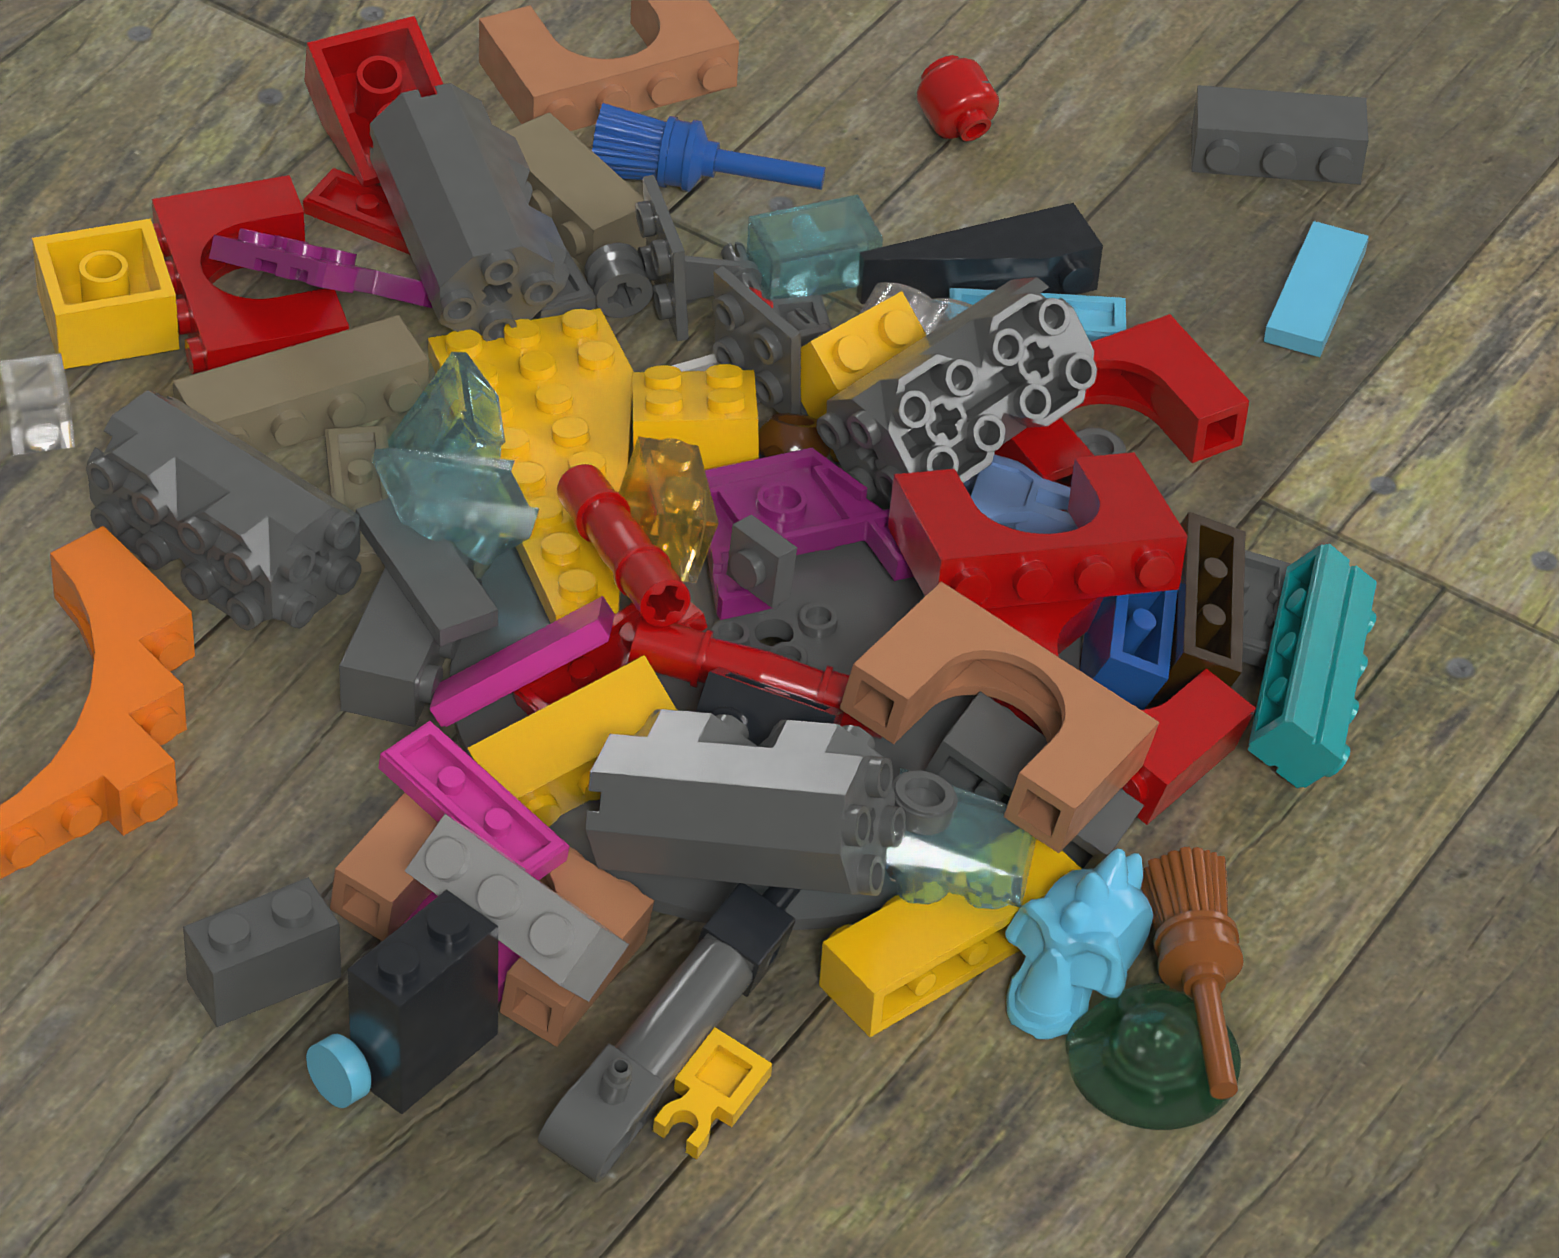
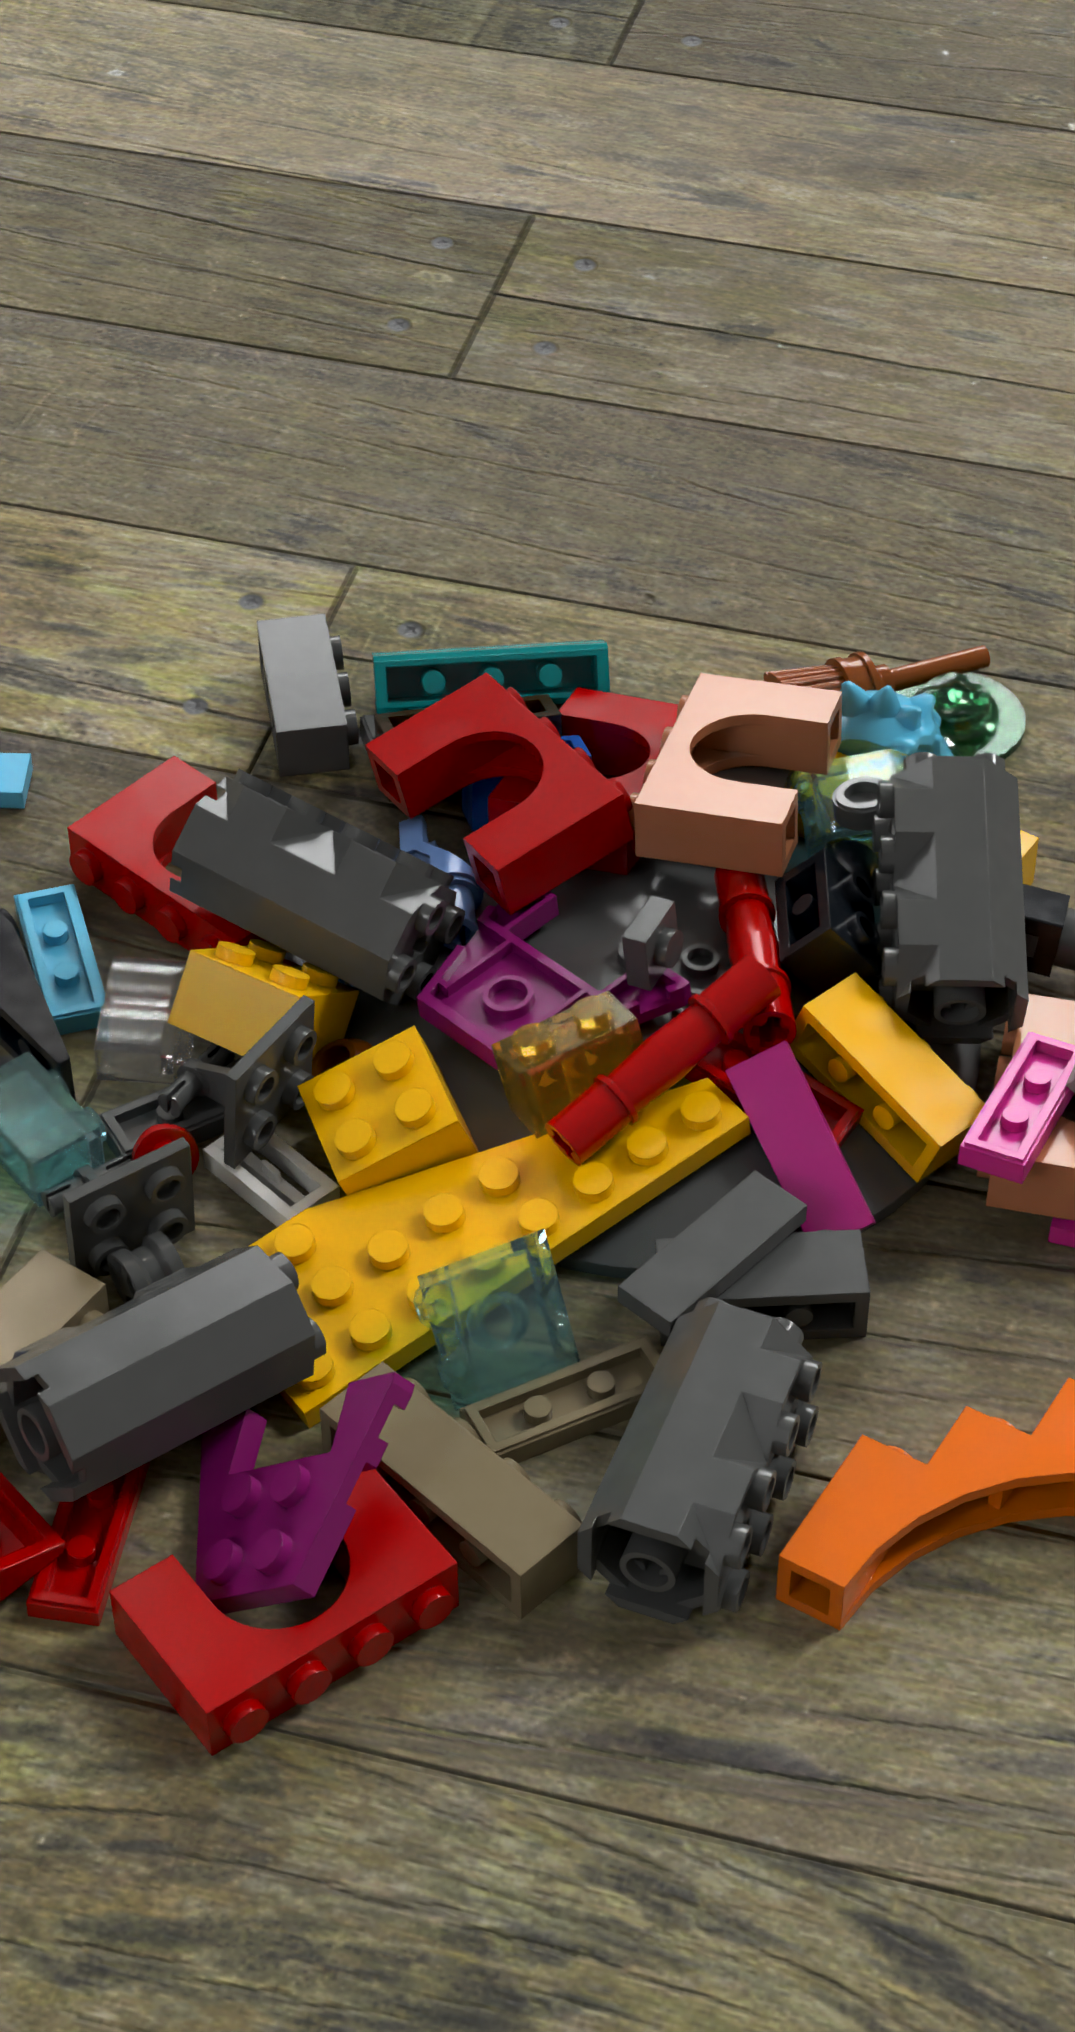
camera: 105 degrees left, 0 degrees up
(37, 404) = (583, 1727): clear brick -> none
(106, 293) = (384, 1711): yellow brick -> none
(457, 499) = (623, 1237): clear light blue slope -> none
(1380, 532) = (306, 695): none -> brick

